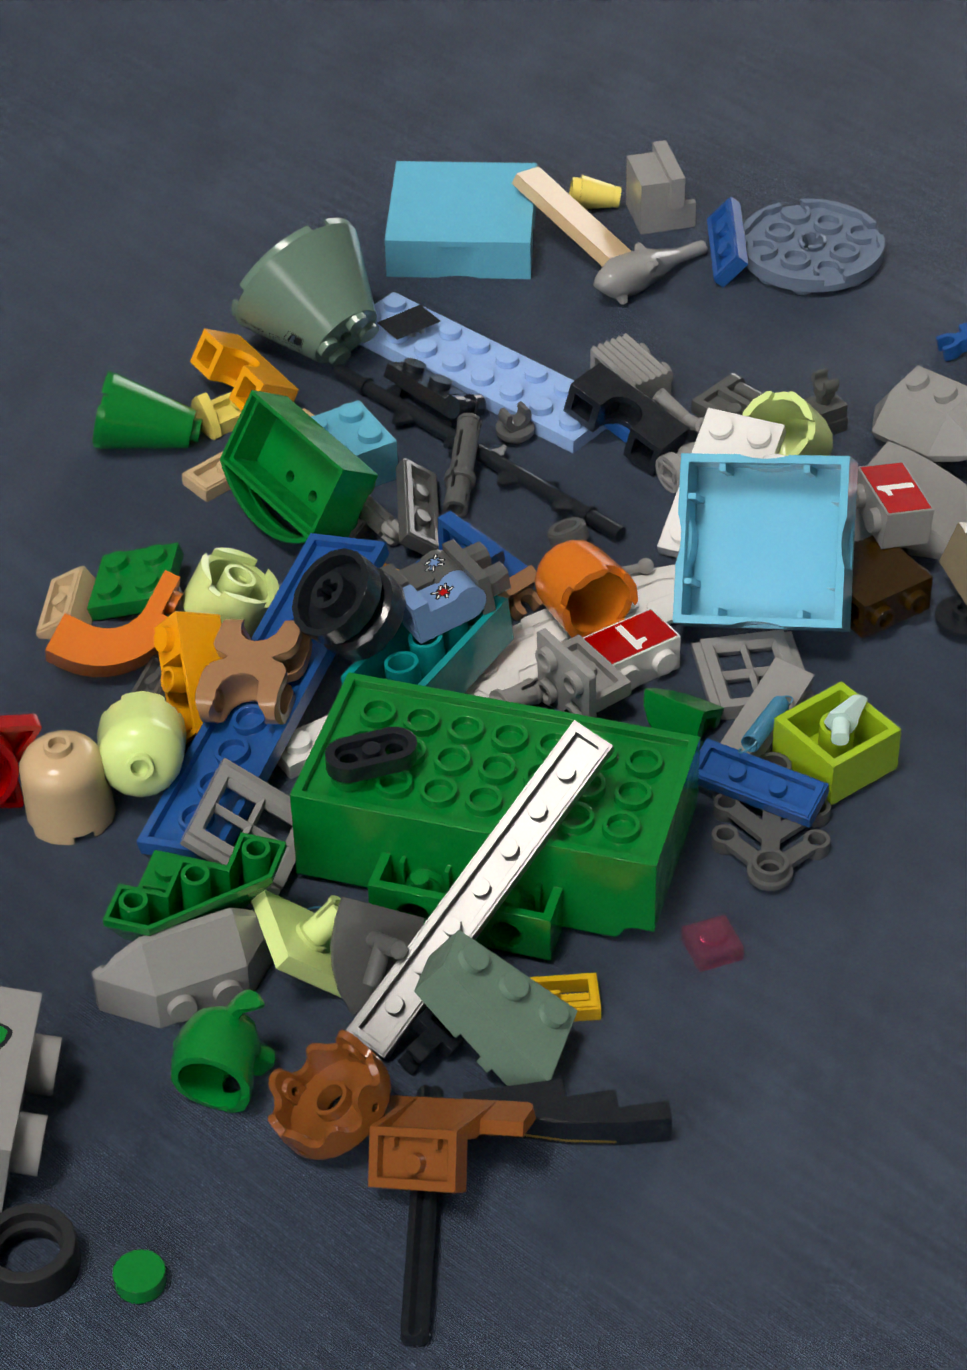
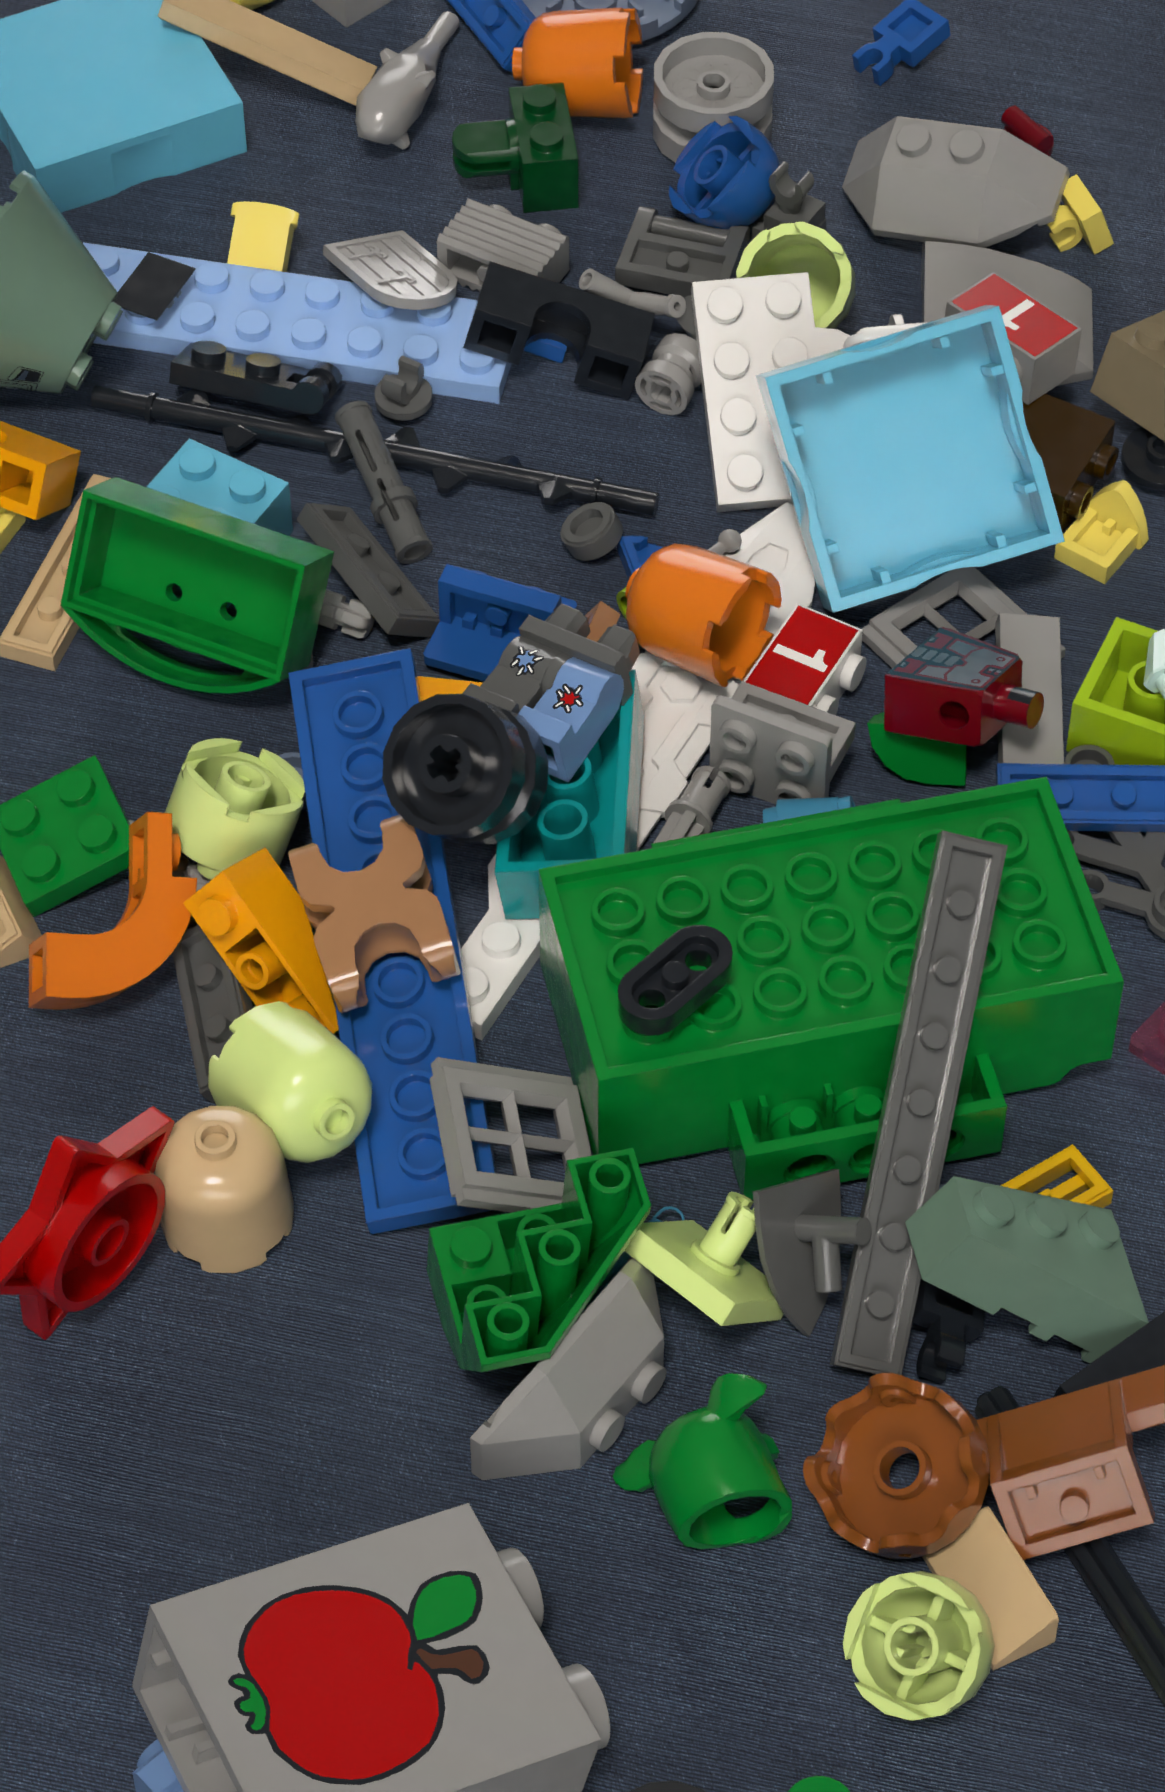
camera: 30 degrees left, 10 degrees up
(261, 1200) = (918, 1645): none -> yellowish green cylinder
(343, 1201) = (999, 1578): none -> tan slope
(495, 318) = (262, 235): none -> light yellow tile
(557, 359) = (394, 270): none -> light grey window
(691, 322) = (530, 147): none -> dark green brick
(704, 685) = (958, 691): none -> dark red torso
(756, 286) = (589, 55): none -> orange cylinder
(764, 724) = (1055, 714): dark azure piece -> none
(794, 367) = (725, 175): none -> blue cylinder
(820, 330) = (706, 81): none -> light grey wheel
(891, 648) = (1106, 533): none -> light yellow tile

